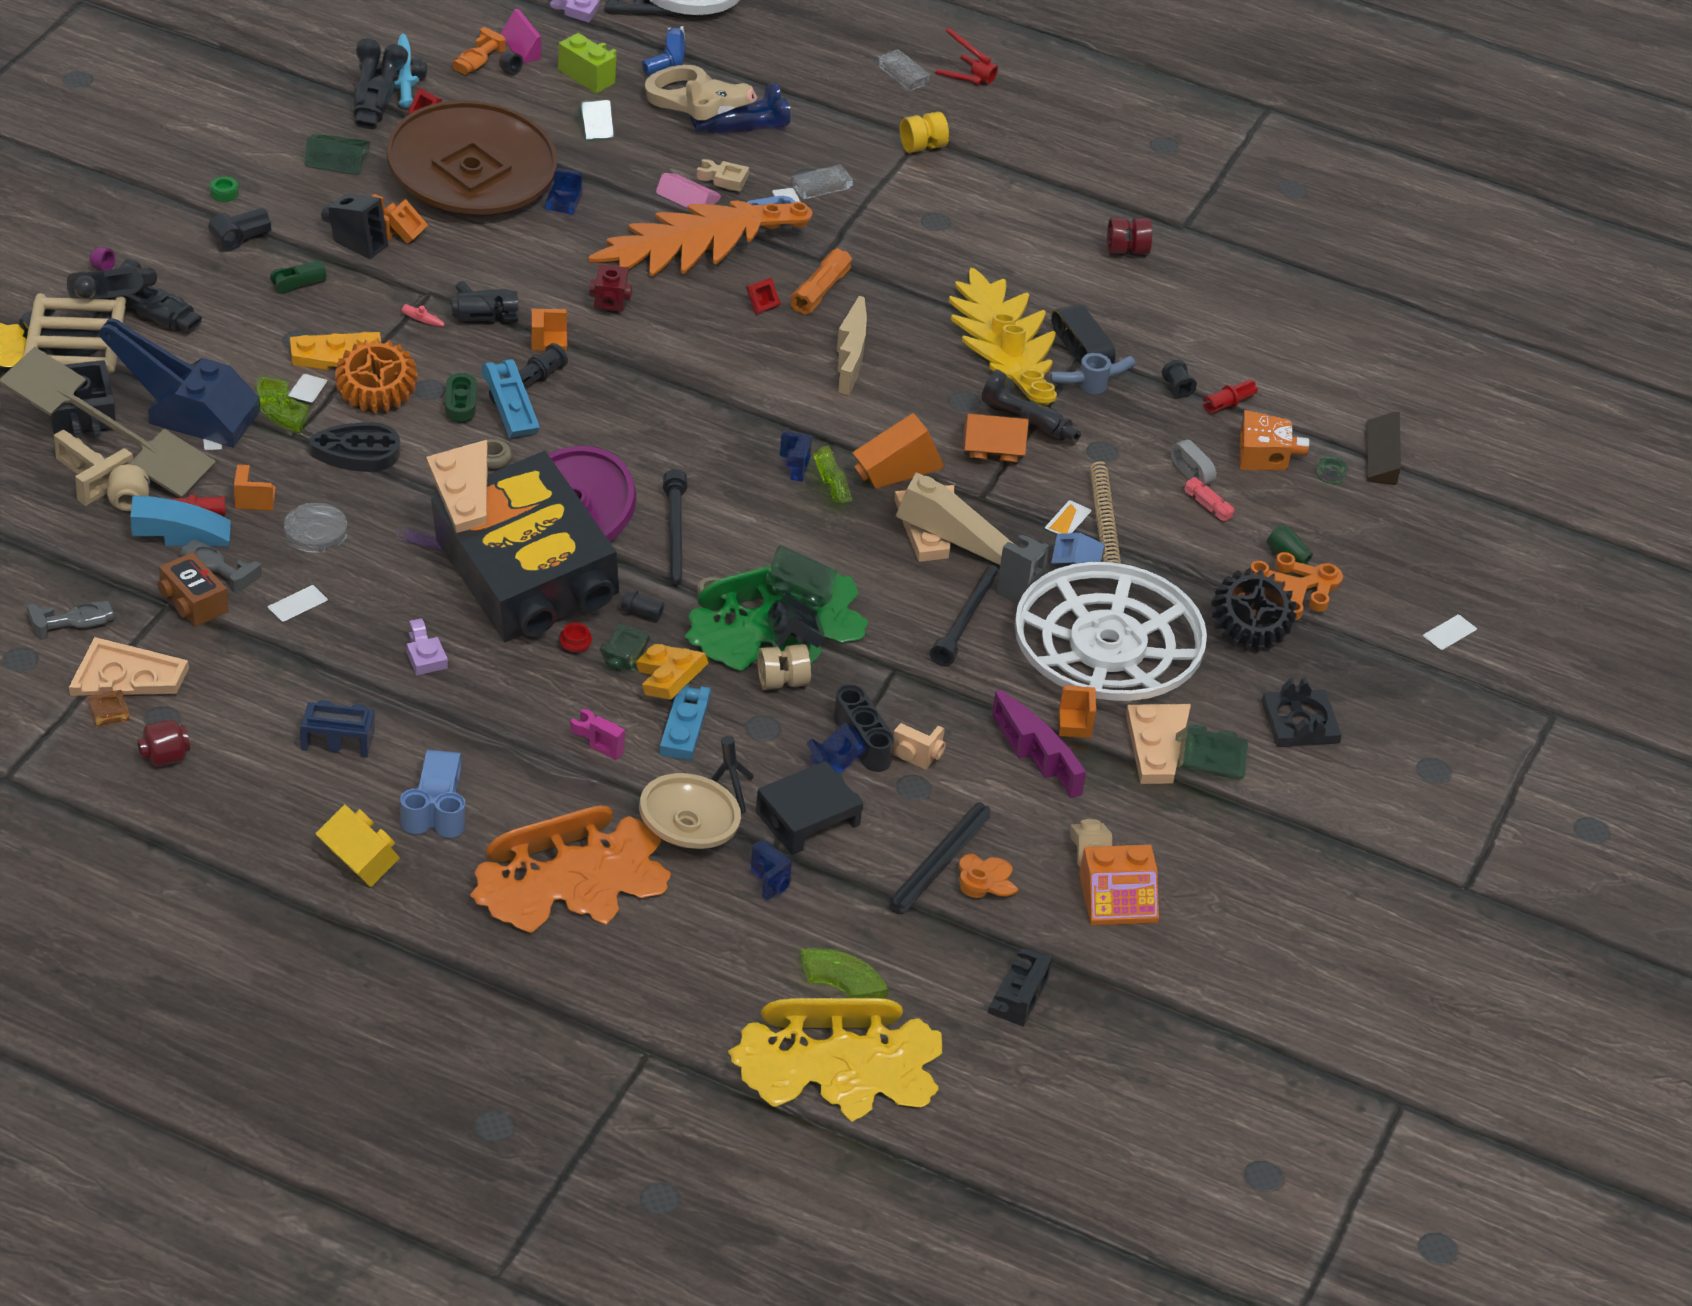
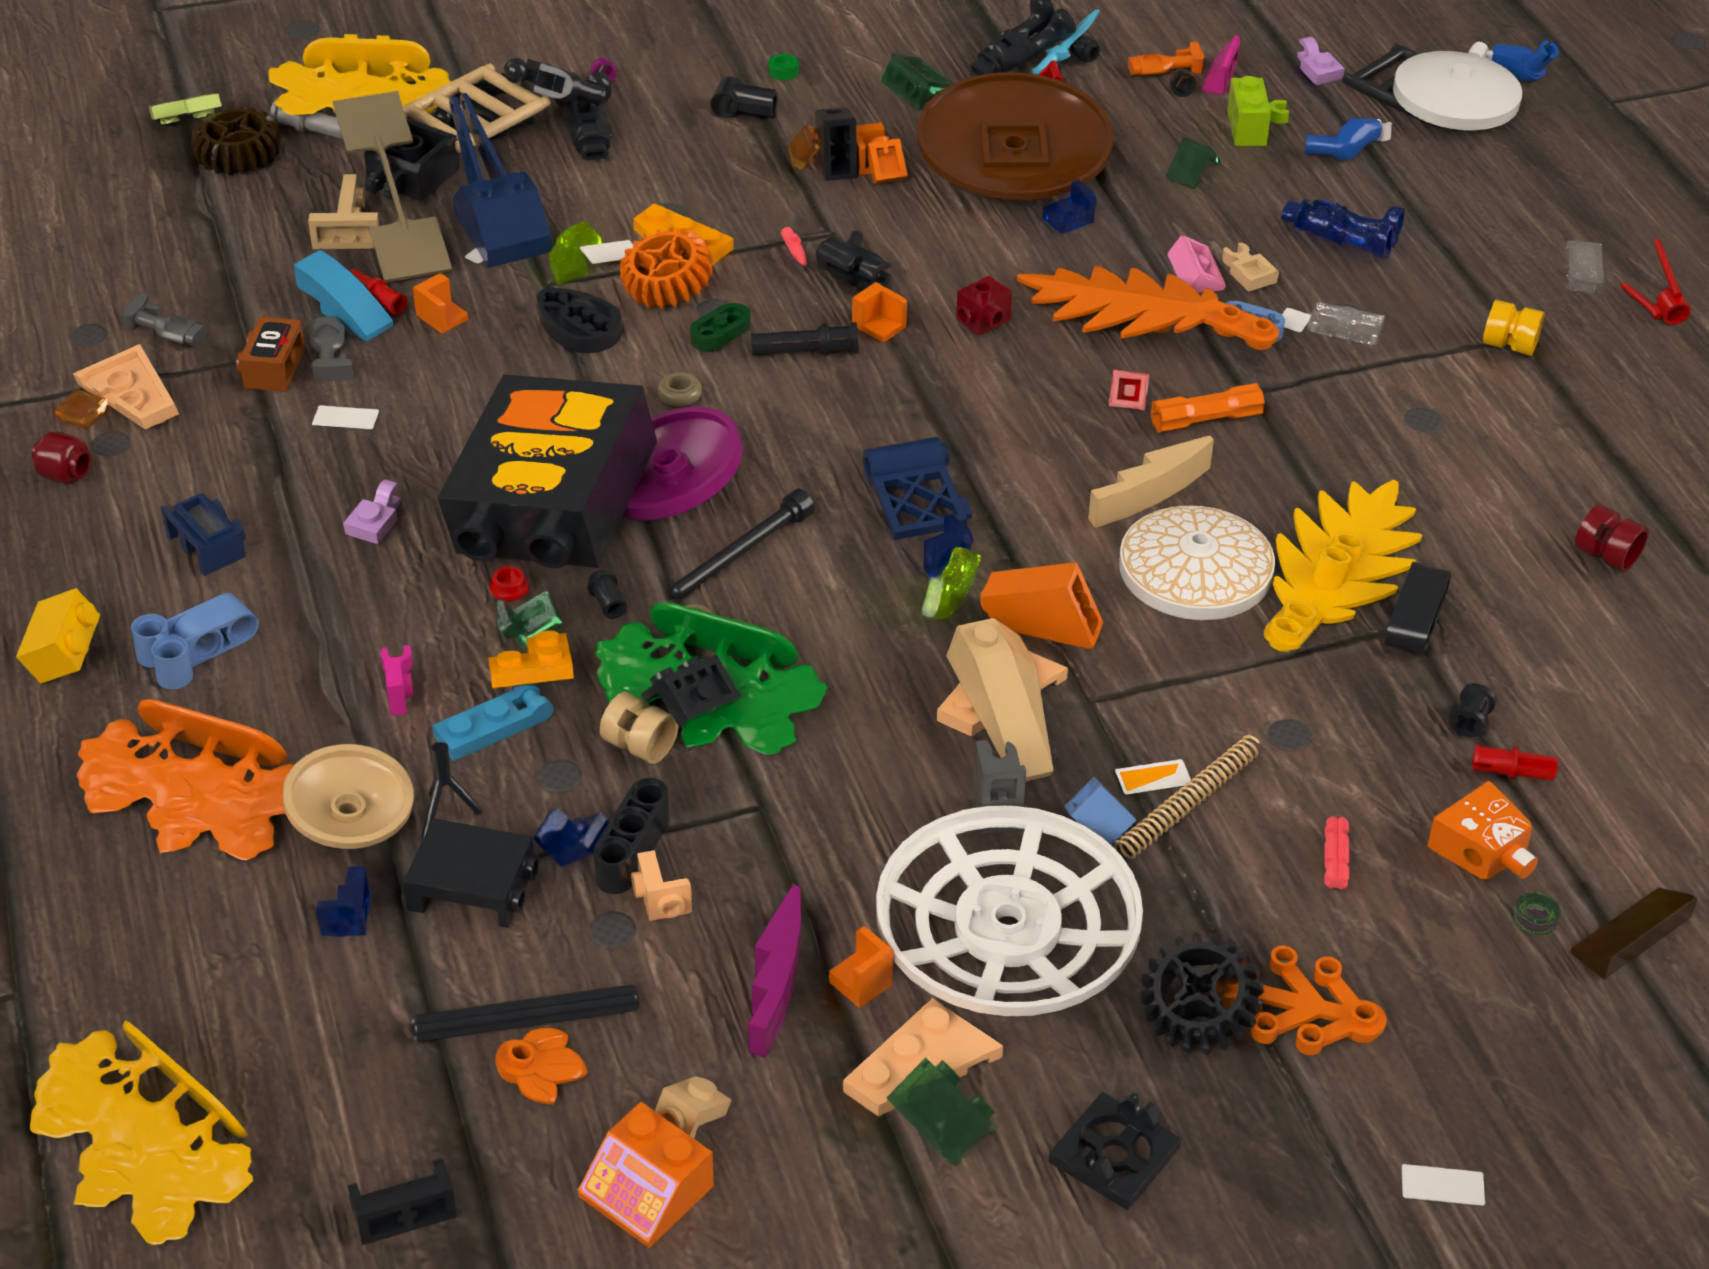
camera: 50 degrees right, 0 degrees up
(125, 483) = (347, 245): tan head -> none
(298, 276) = (736, 161): dark green bar -> none
(315, 527) = (446, 364): clear tile -> none
(334, 240) = (804, 146): none -> clear orange tile
(462, 483) = (533, 372): light nougat wing -> none
(511, 398) = (750, 348): dark azure plate -> none
(702, 94) = (1317, 188): tan animal -> none
(708, 418) = (908, 467): none -> dark blue piece
(801, 577) = (752, 650): clear green bracket -> none
(843, 971) = (276, 1055): clear neon green tile -> none
(932, 380) = (1196, 562): none -> white dish
(945, 649) = (826, 816): black piece -> none
(995, 436) = (1173, 647): orange slope -> none
(998, 395) = (1237, 616): black piece -> none
(1093, 373) = (1378, 648): sand blue piece -> none
(1193, 462) = (1365, 803): light grey beam -> none
(1286, 540) = (1358, 955): dark green cone -> none

